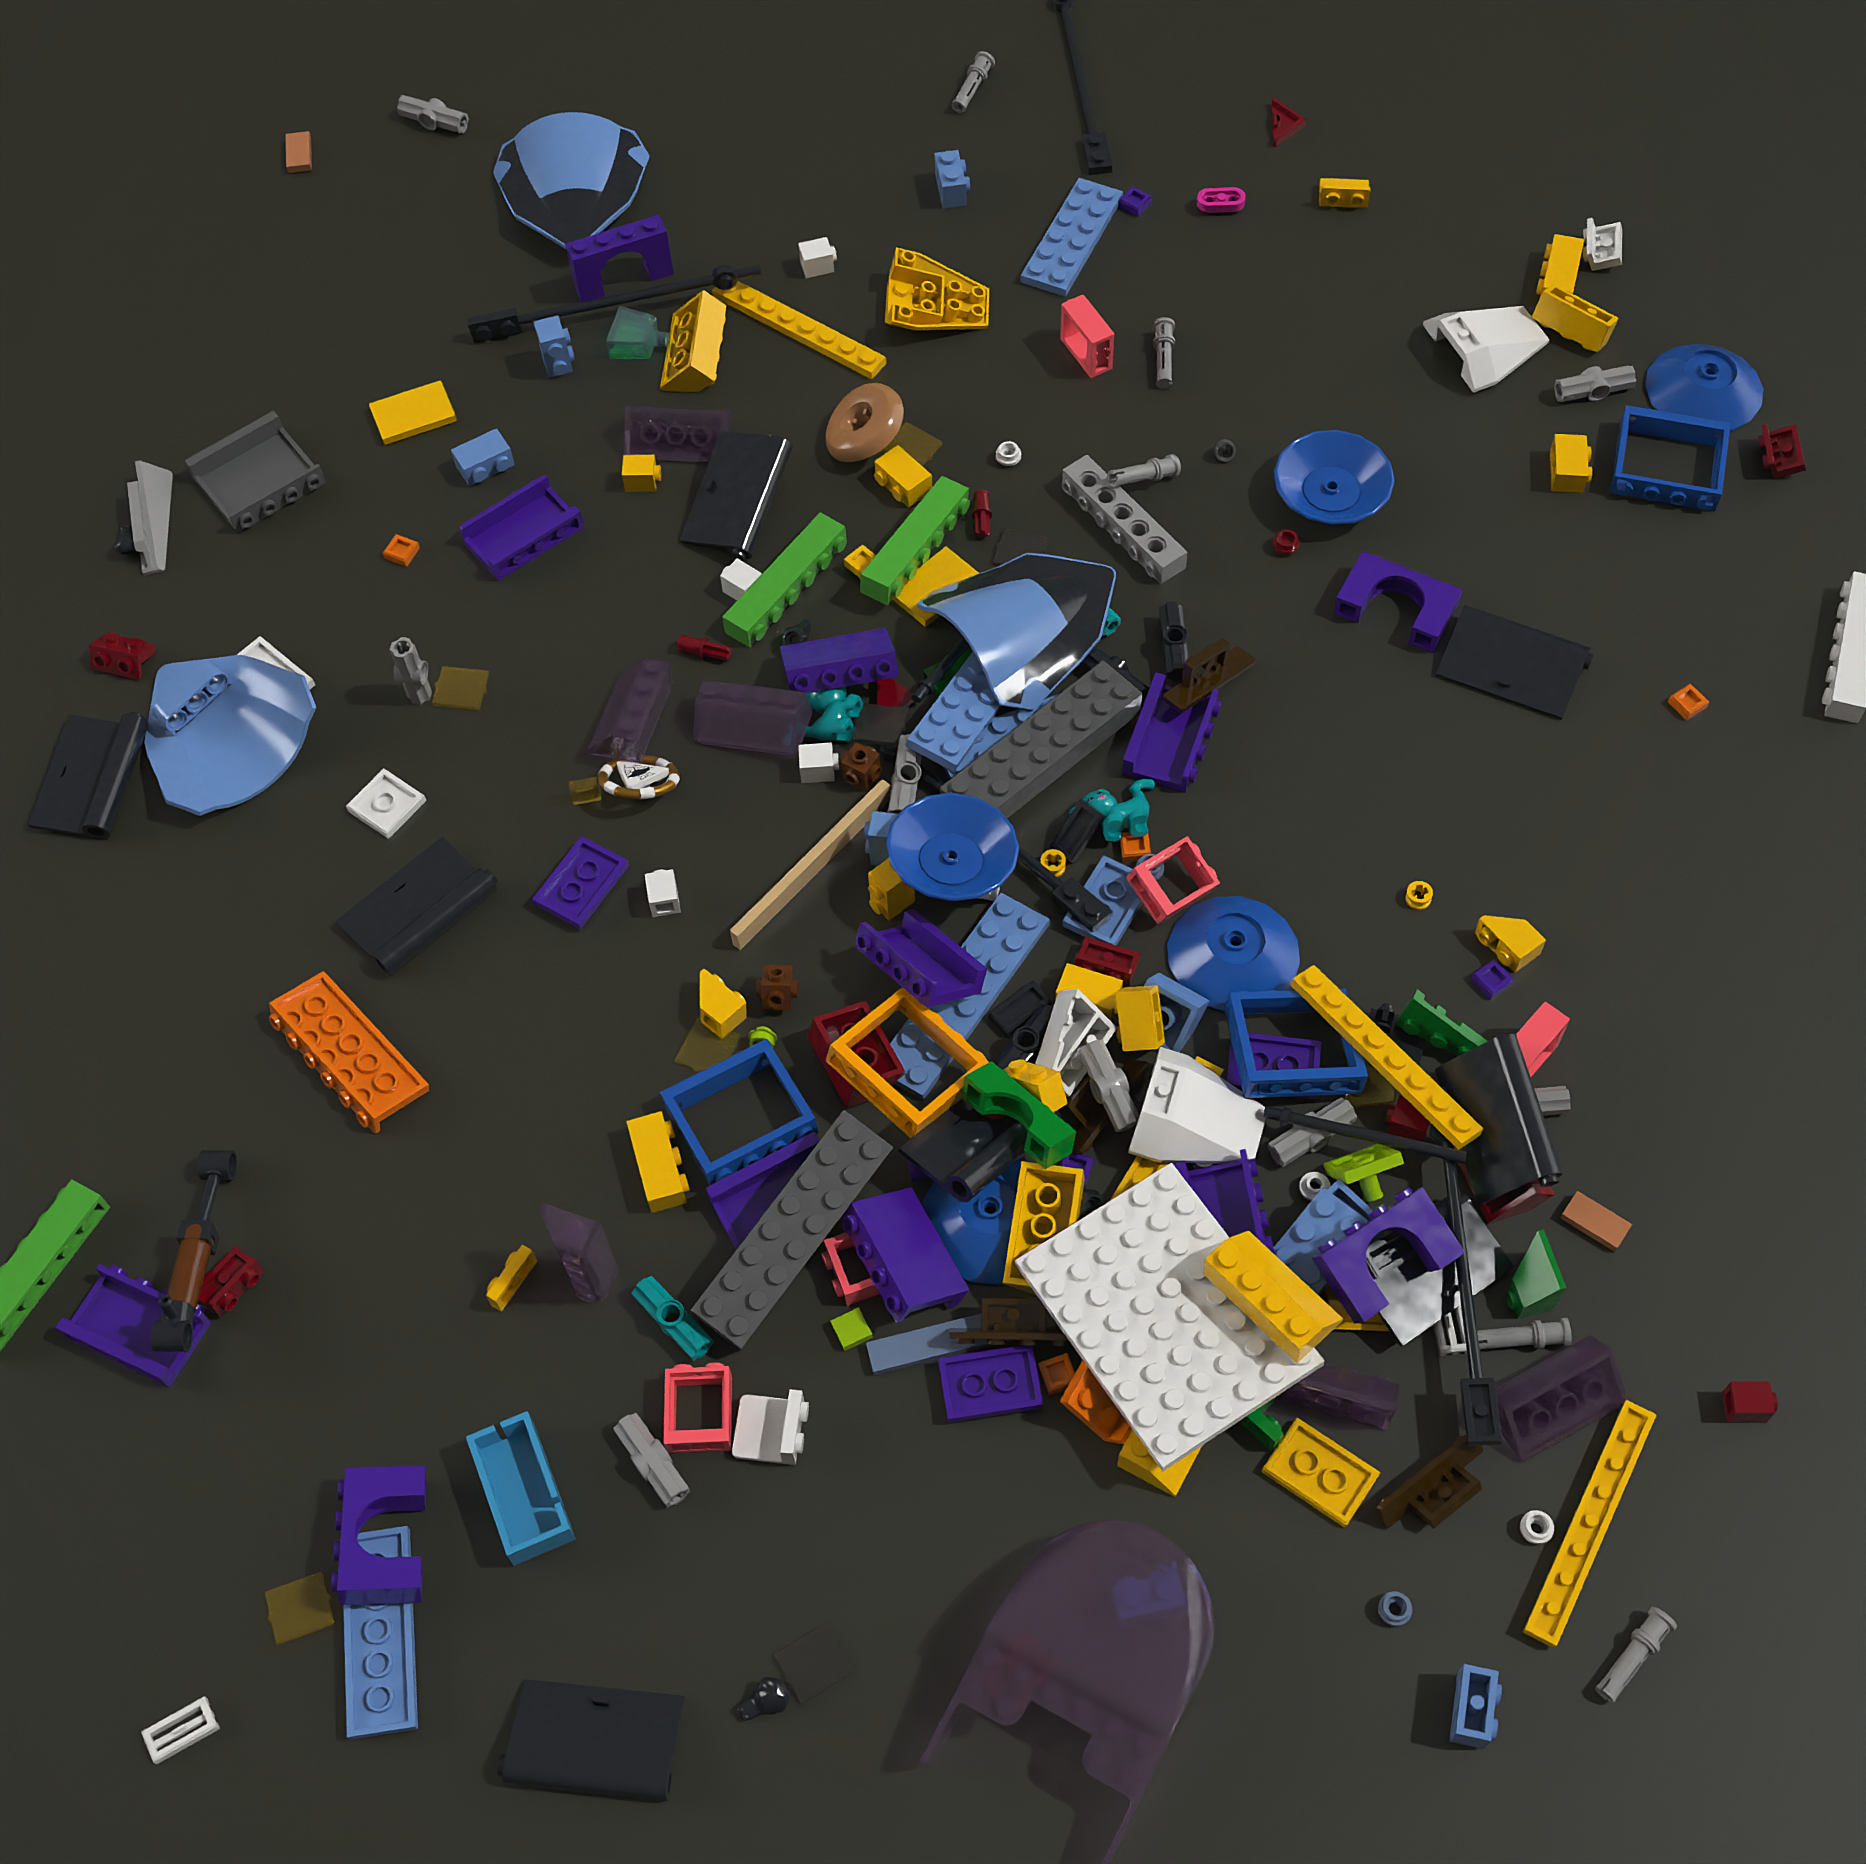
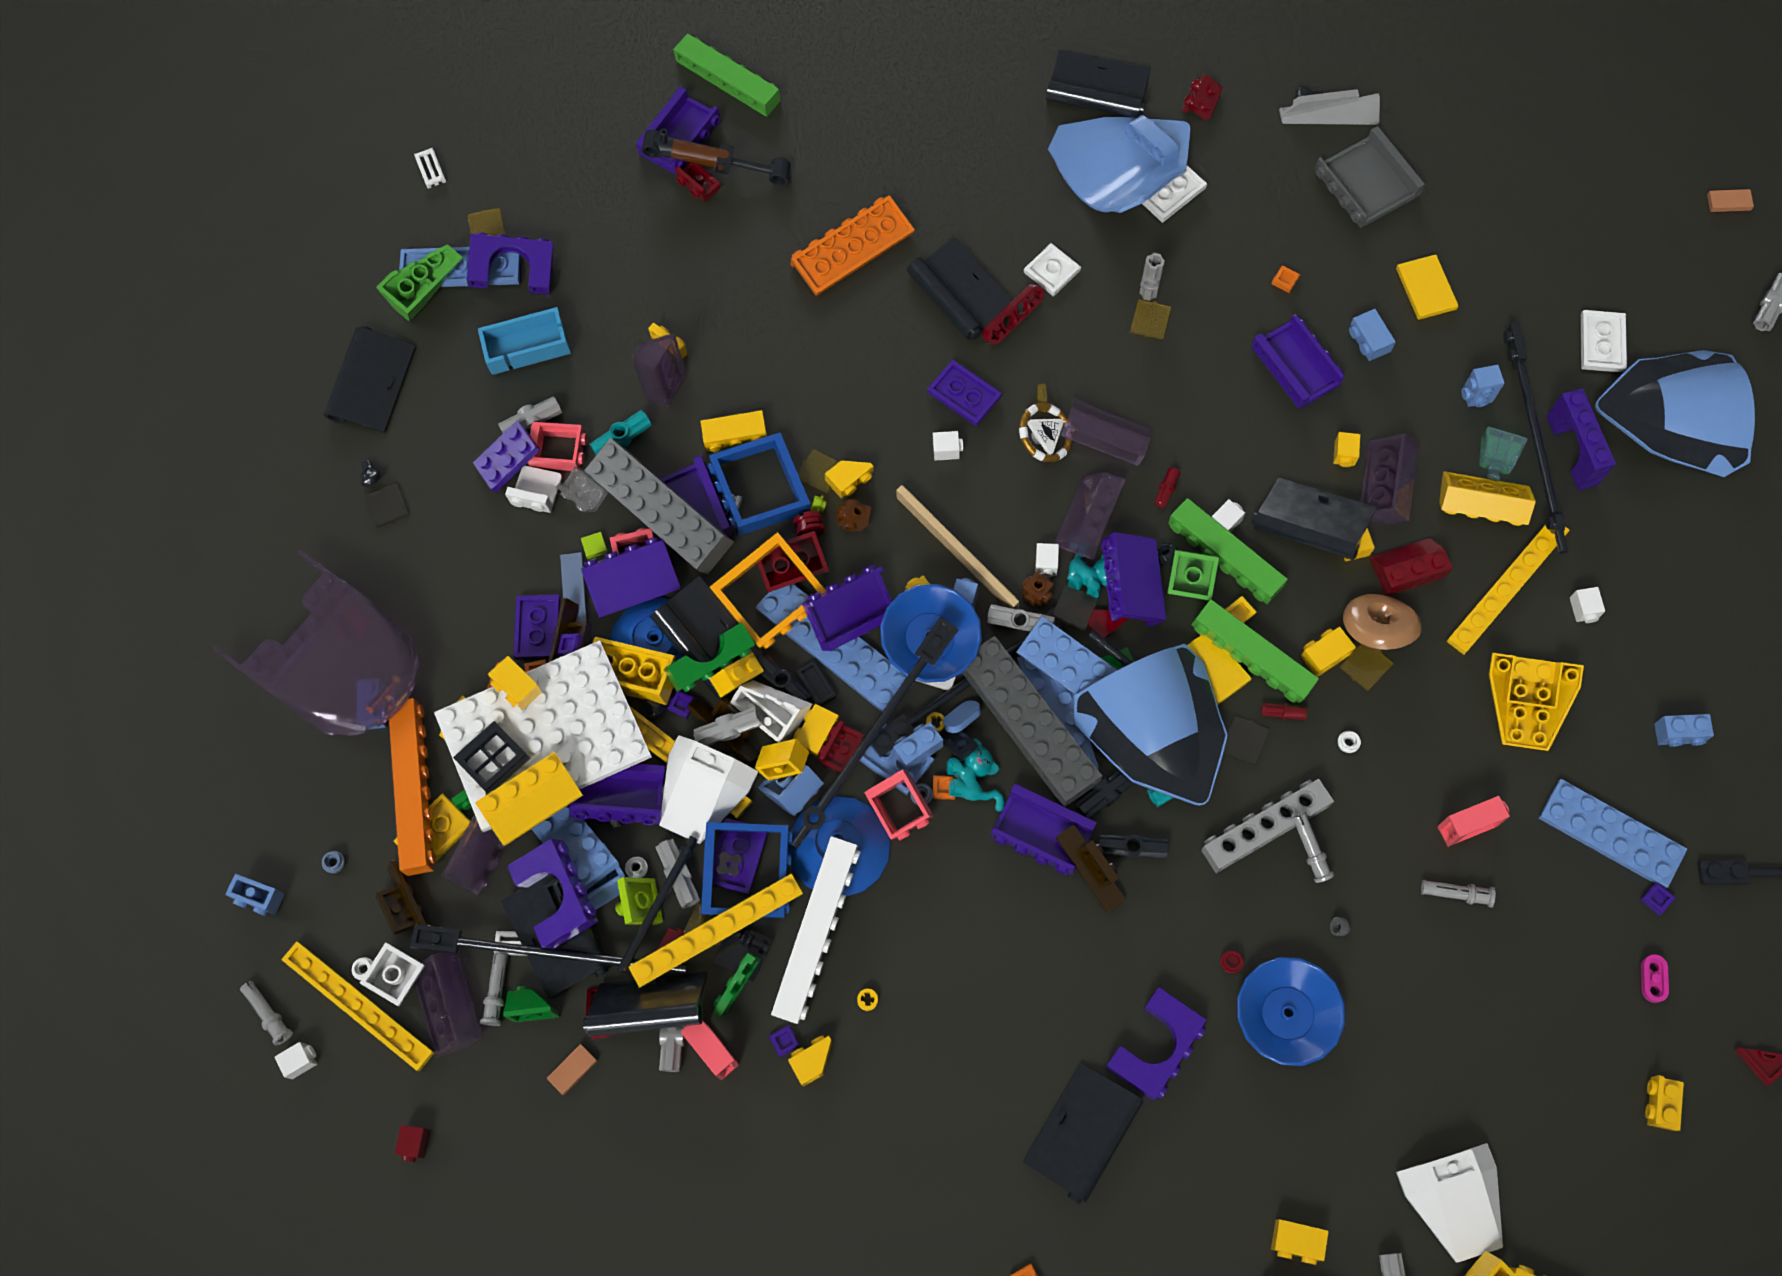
camera: 100 degrees right, 10 degrees up
(420, 1682) = (415, 284): none -> bright green wedge
(459, 836) = (1011, 311): none -> dark red beam
(485, 252) = (1603, 341): none -> white plate
(723, 1475) = (506, 456): none -> dark purple plate
(767, 1356) = (583, 490): none -> clear bracket
(785, 406) = (1411, 566): none -> dark red slope
(796, 1040) = (808, 523): none -> dark red wheel
(825, 602) = (1193, 575): none -> bright green brick
(984, 837) = (929, 653): none -> black bar
(1020, 1315) = (569, 644): none -> dark purple tile
(1042, 830) = (961, 716): none -> medium blue tile
(1095, 864) = (917, 746): none -> medium blue brick
(1106, 1348) = (514, 683): none -> yellow brick
(1203, 1384) = (478, 744): none -> black piece
(1278, 1501) = (411, 790): none -> orange brick
(1297, 1054) = (733, 859): none -> clear smoke plate
(1354, 947) = (815, 929): none -> white brick
(1540, 1469) = (392, 974): none -> white slope
(1688, 1588) = (296, 1060): none -> white brick

